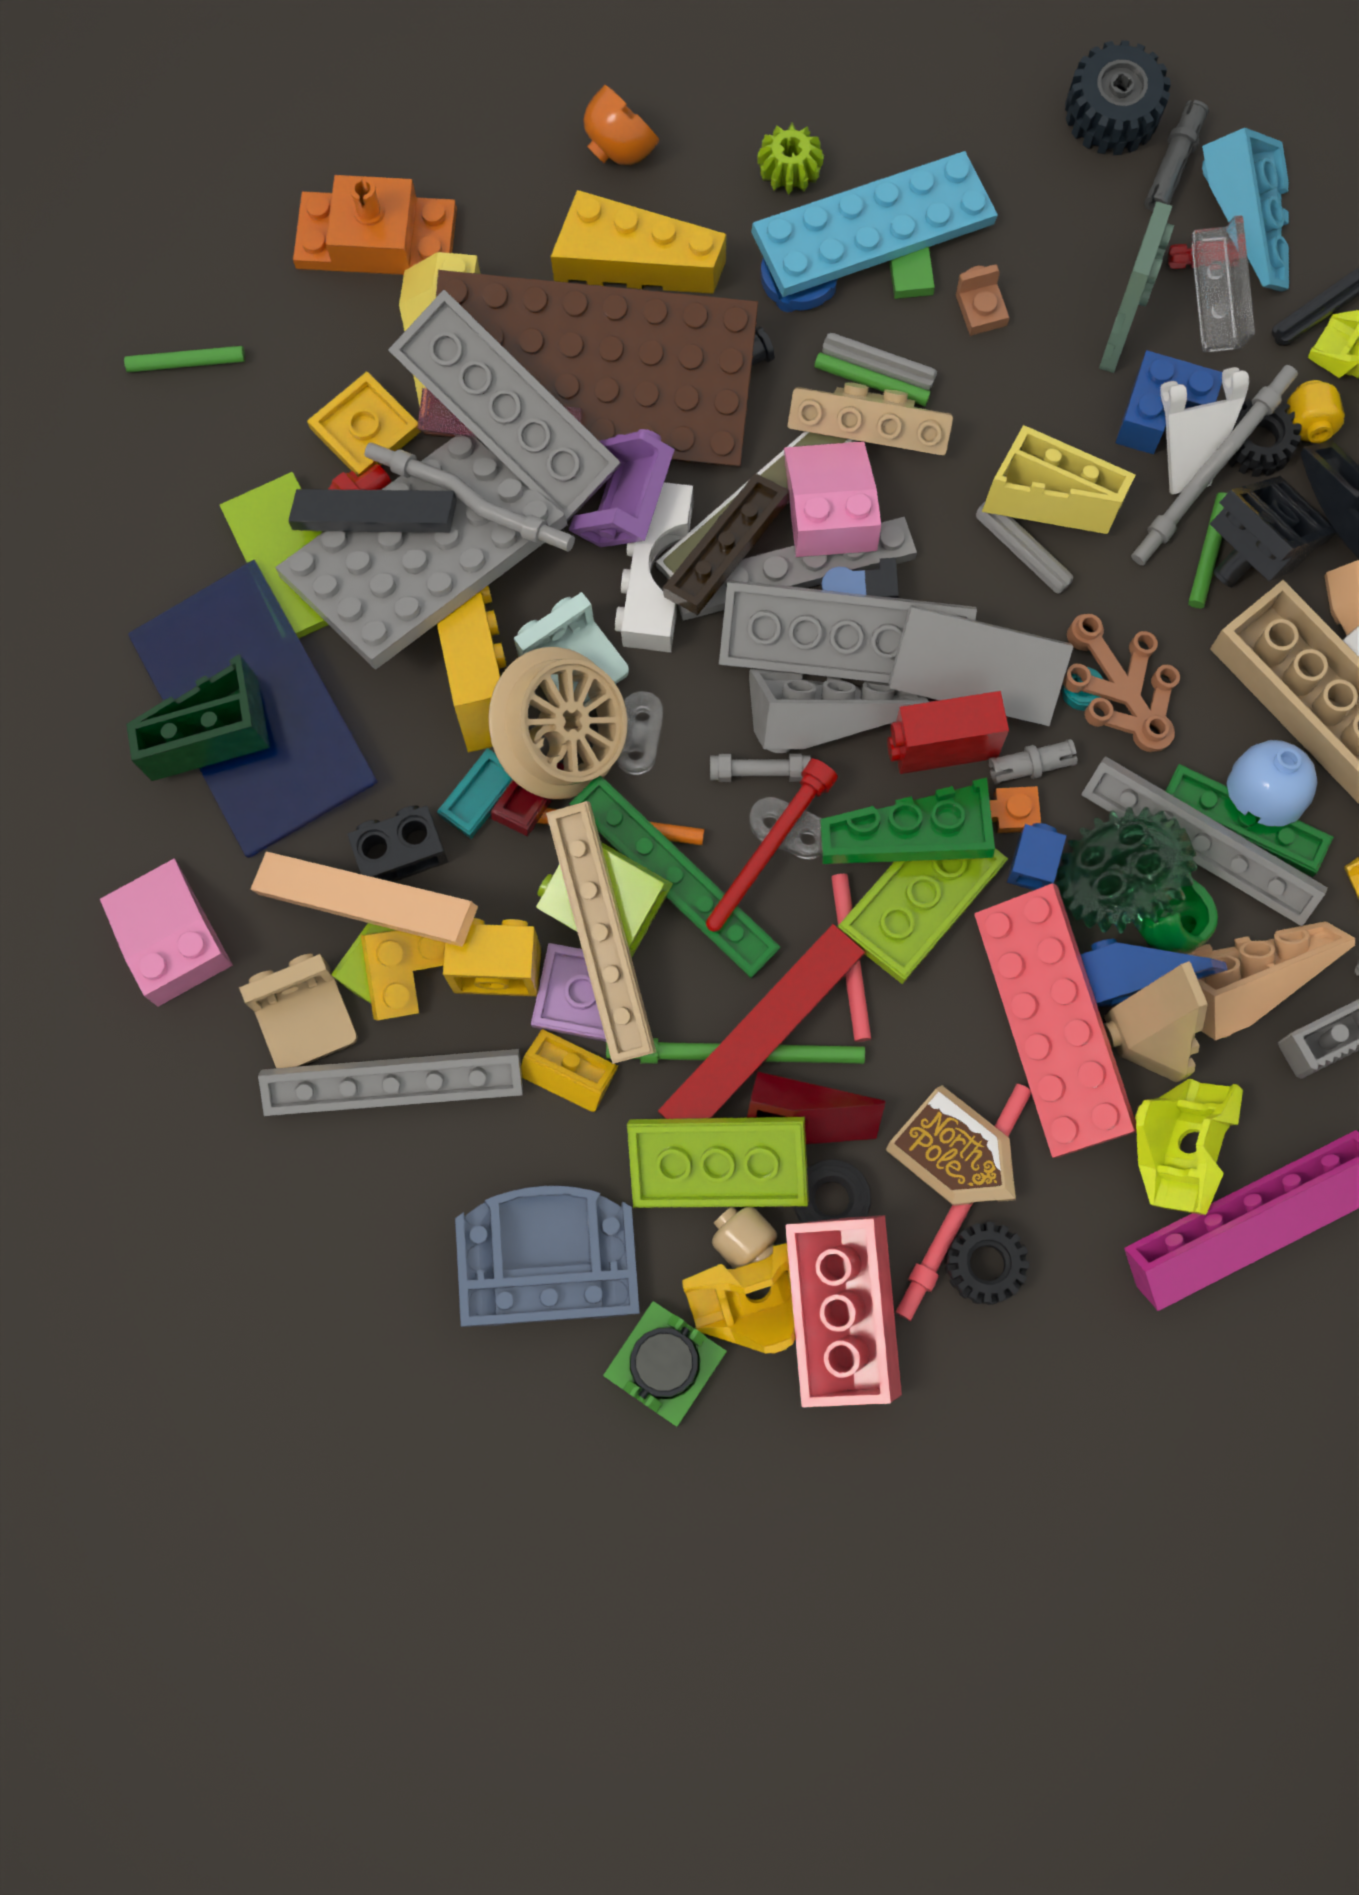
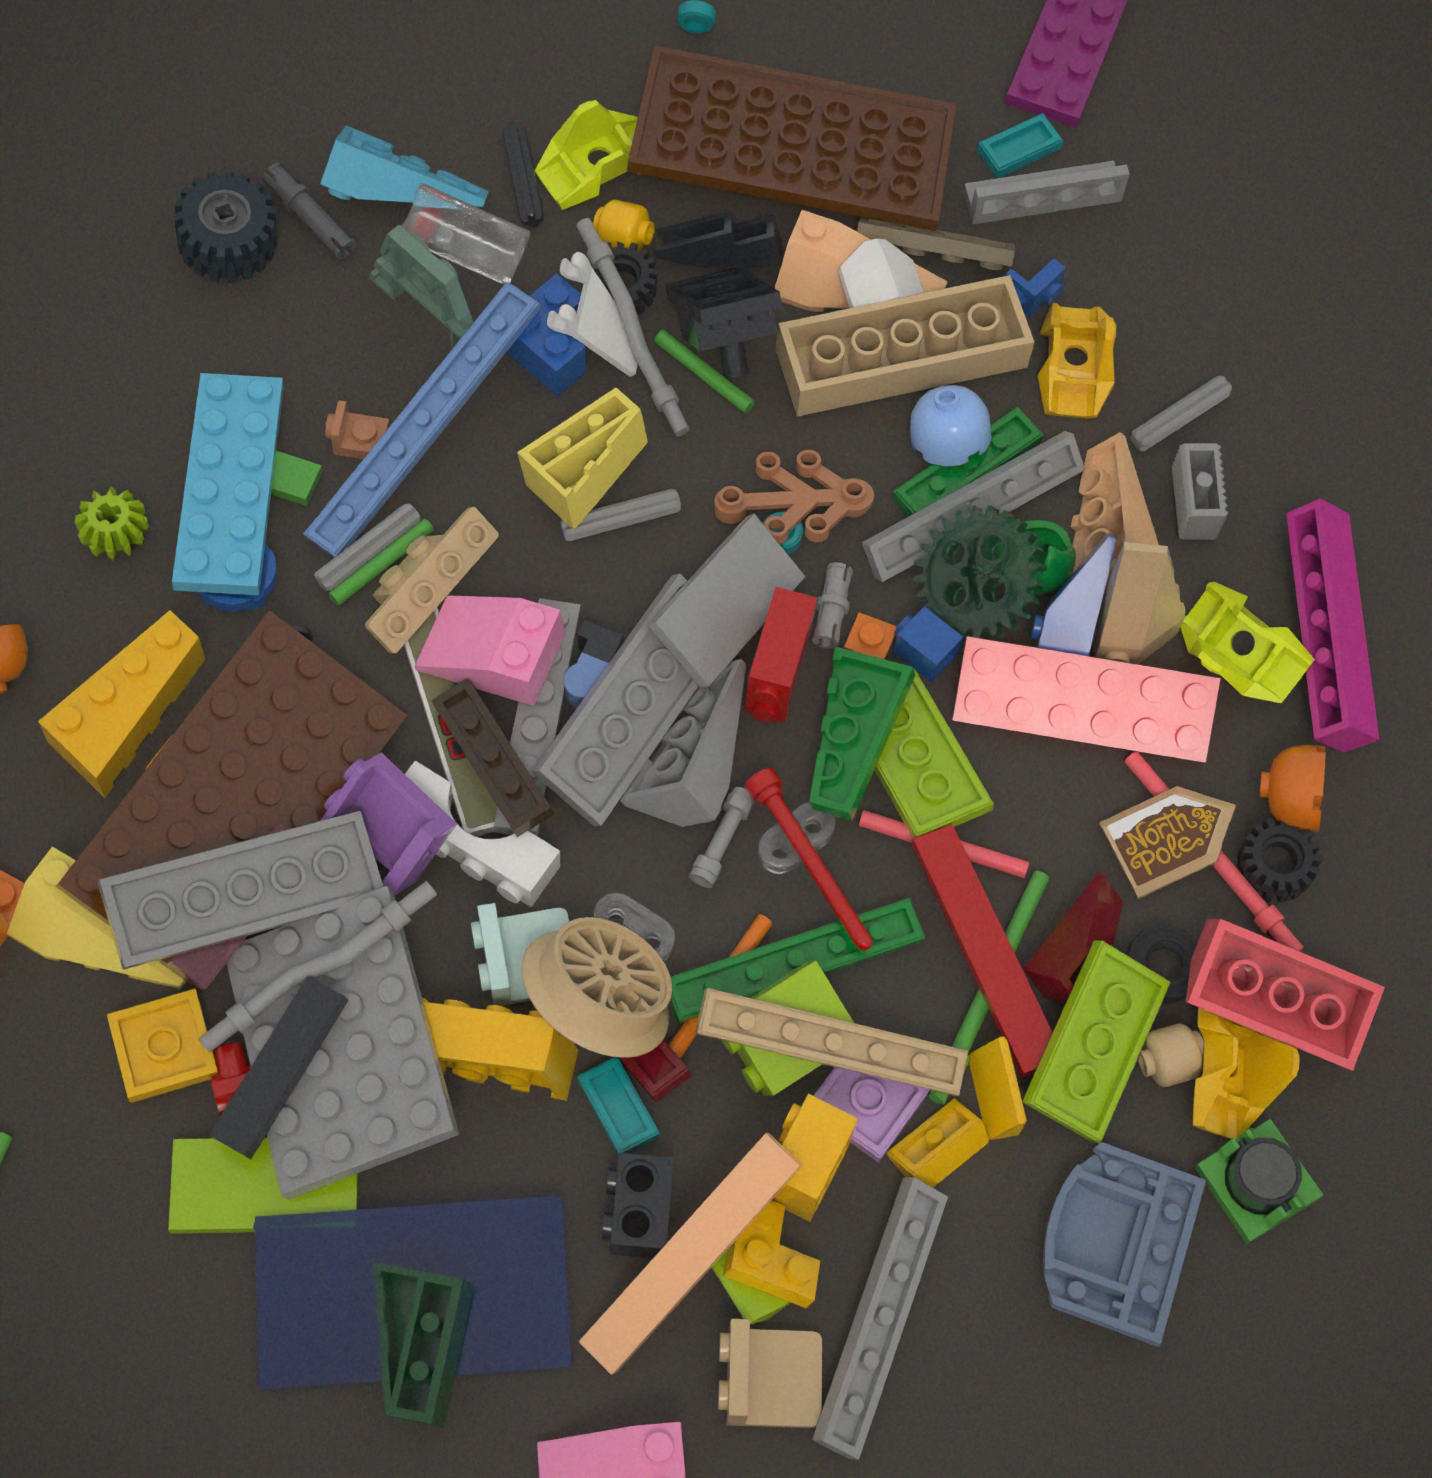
camera: 75 degrees left, 10 degrees down
(639, 1098) = (997, 1089): none -> yellow slope
(1021, 339) = (422, 420): none -> medium blue tile
(1064, 1250) = (1296, 786): none -> orange cylinder

